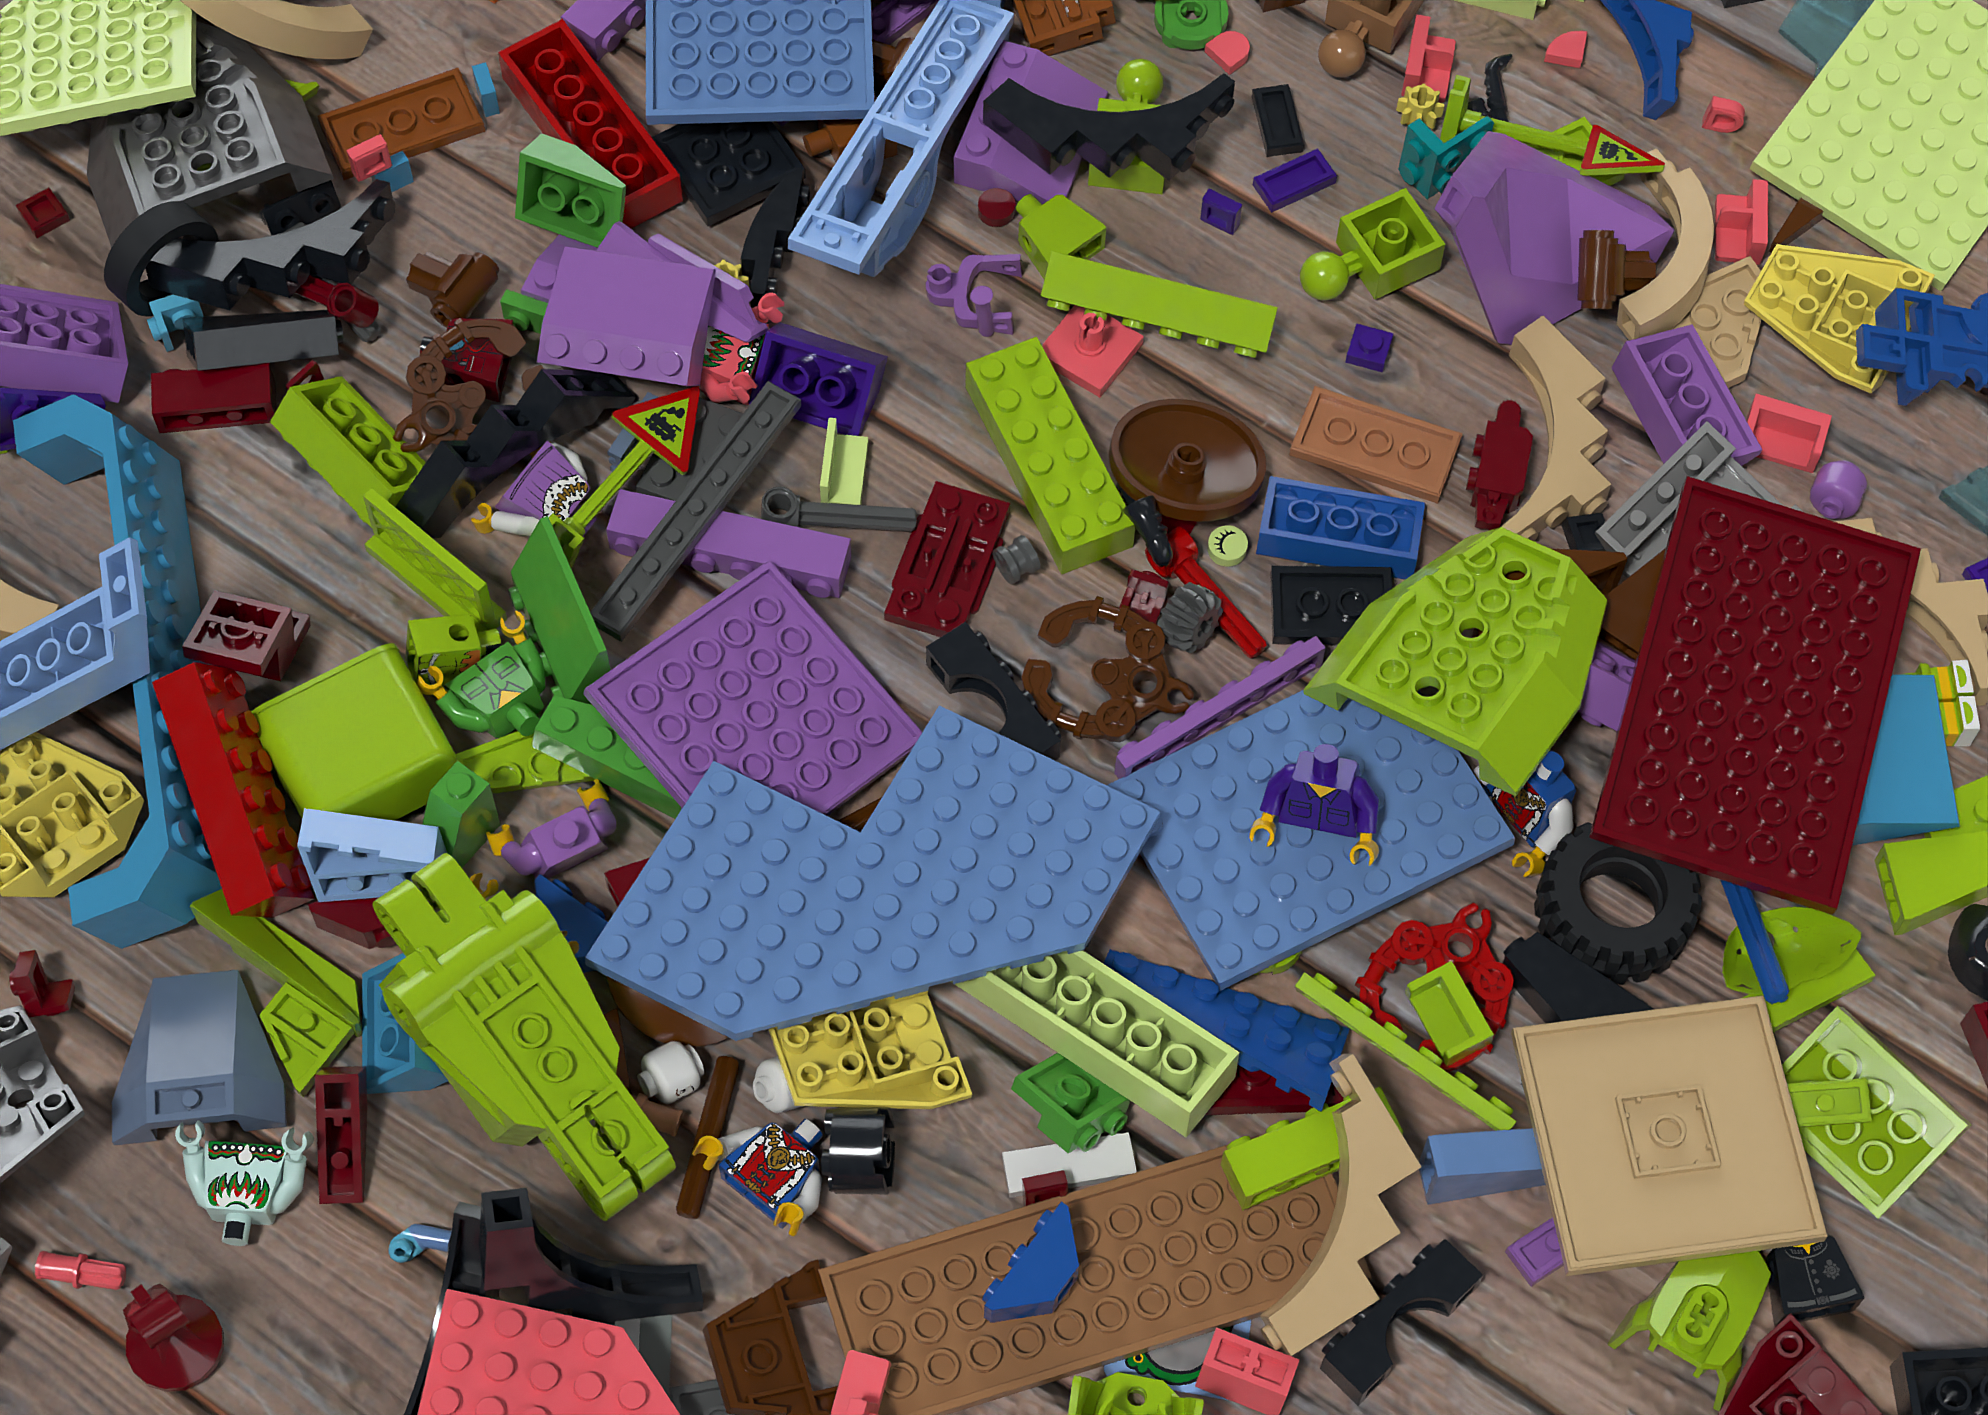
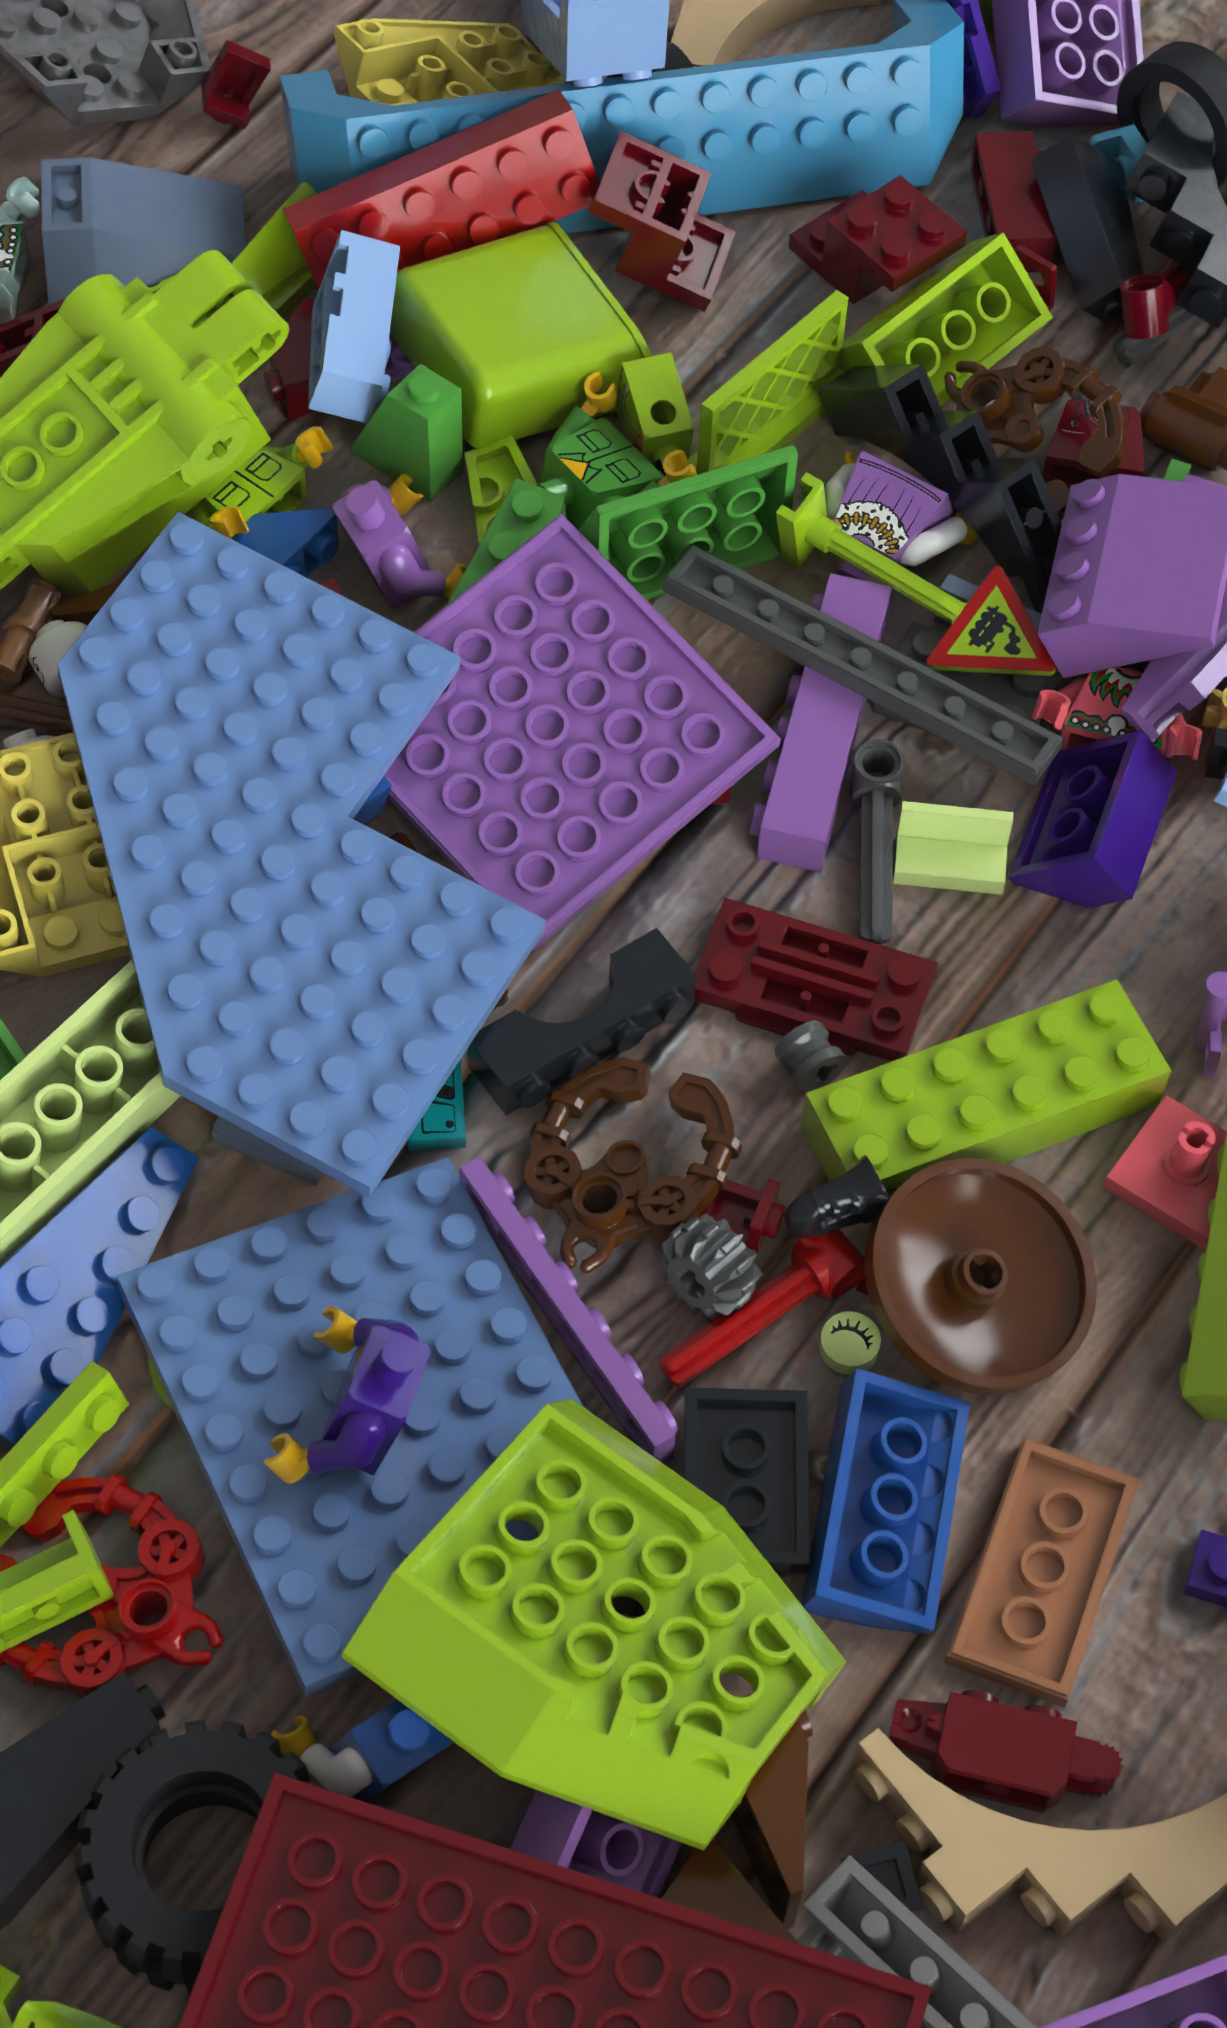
camera: 90 degrees right, 5 degrees down
(259, 490) = (877, 240): none -> dark red bracket

